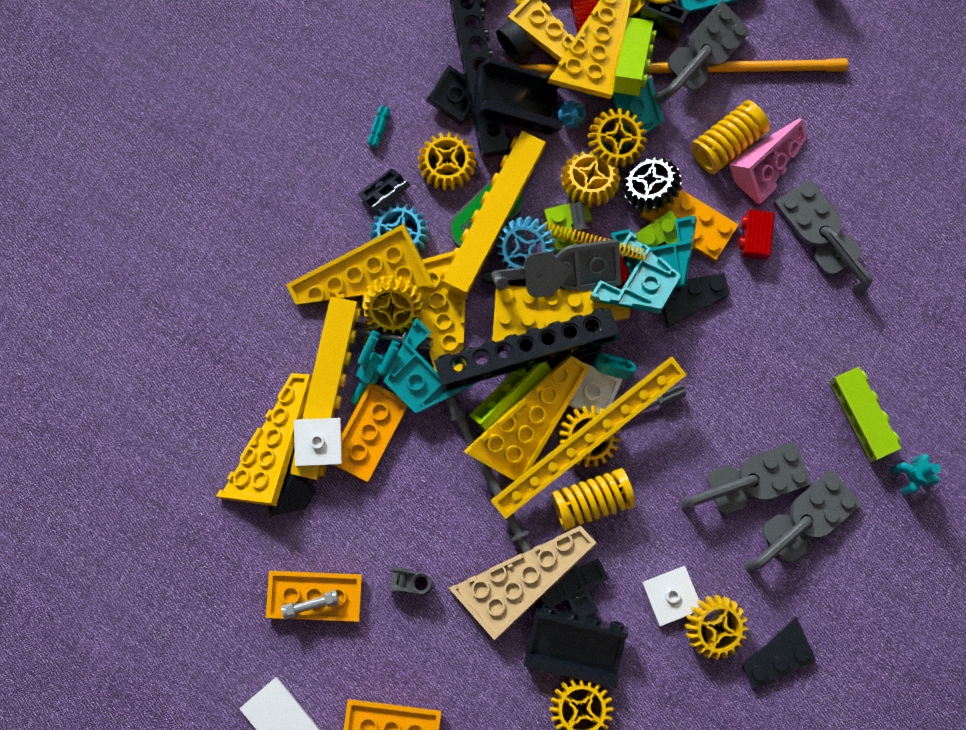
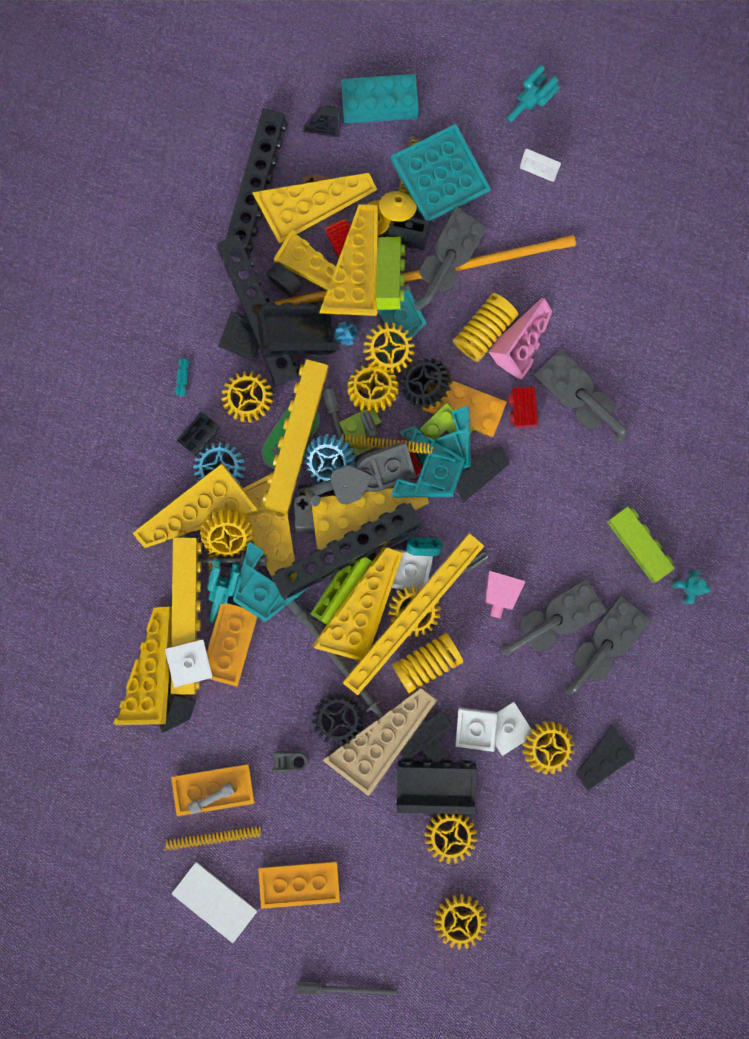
camera: 10 degrees left, 5 degrees up
(352, 658) = (213, 838): none -> yellow piece
(483, 305) = (303, 518): none -> dark grey piece
(489, 528) = (323, 710): none -> black gear
(540, 194) = (332, 408): none -> dark grey piece
(635, 588) = (476, 729): none -> white plate
(694, 436) = (502, 592): none -> bright pink torso

